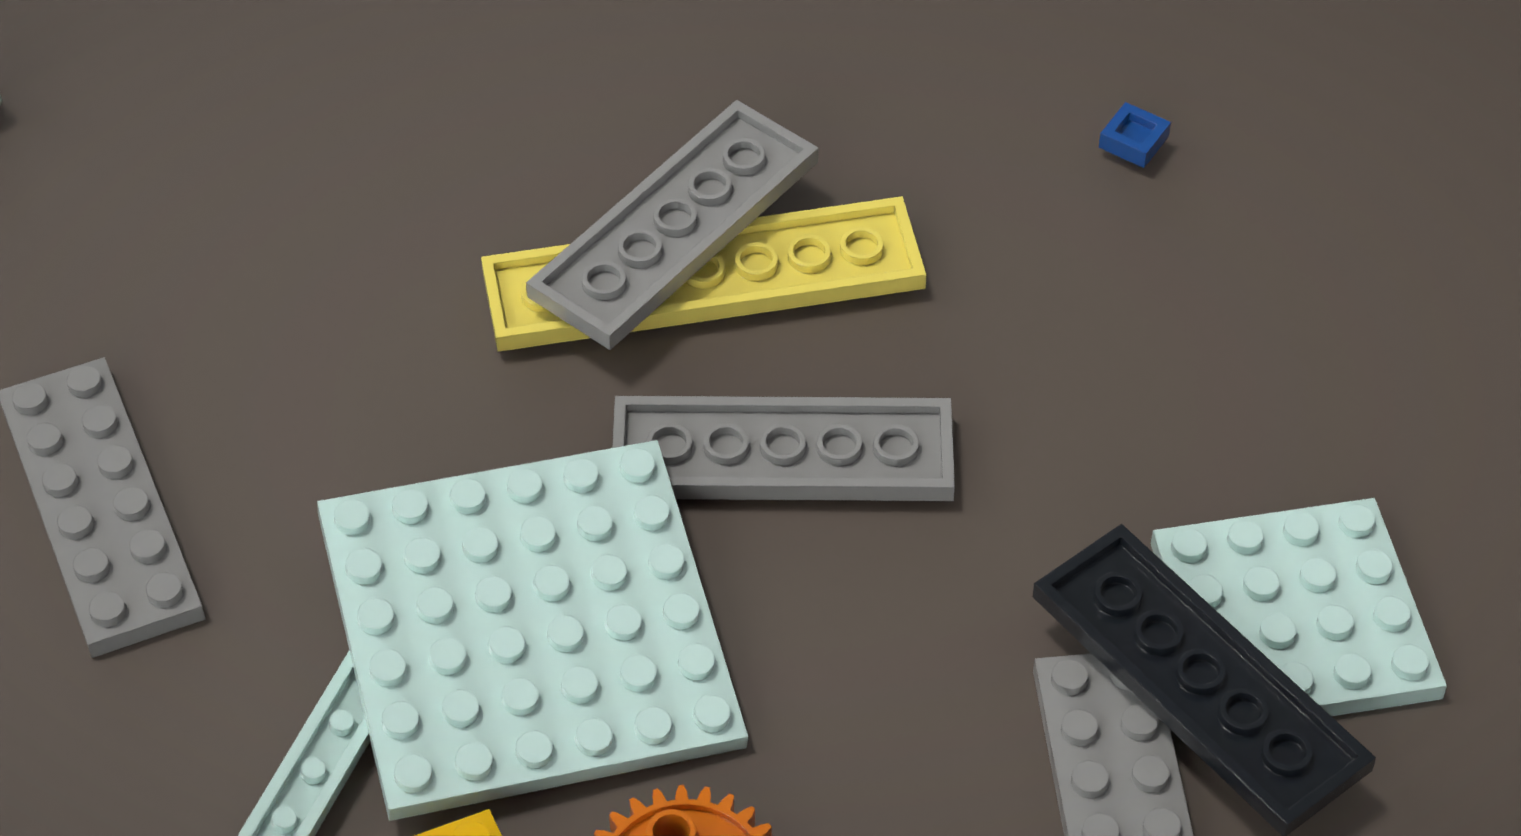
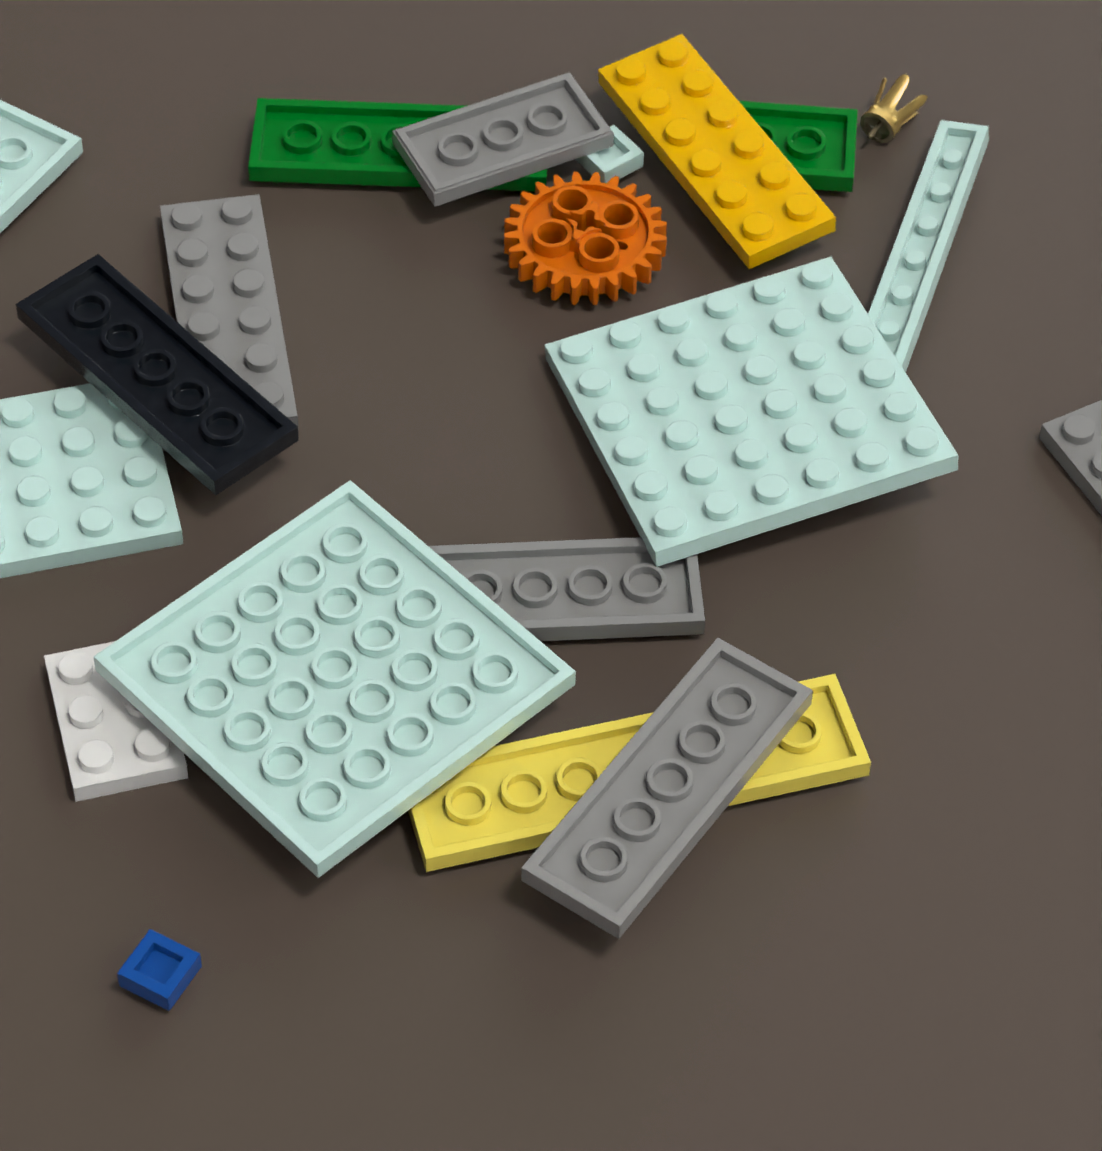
camera: 175 degrees right, 0 degrees up
(988, 342) = (334, 676): none -> light aqua plate
(1200, 360) = (103, 735): none -> white plate

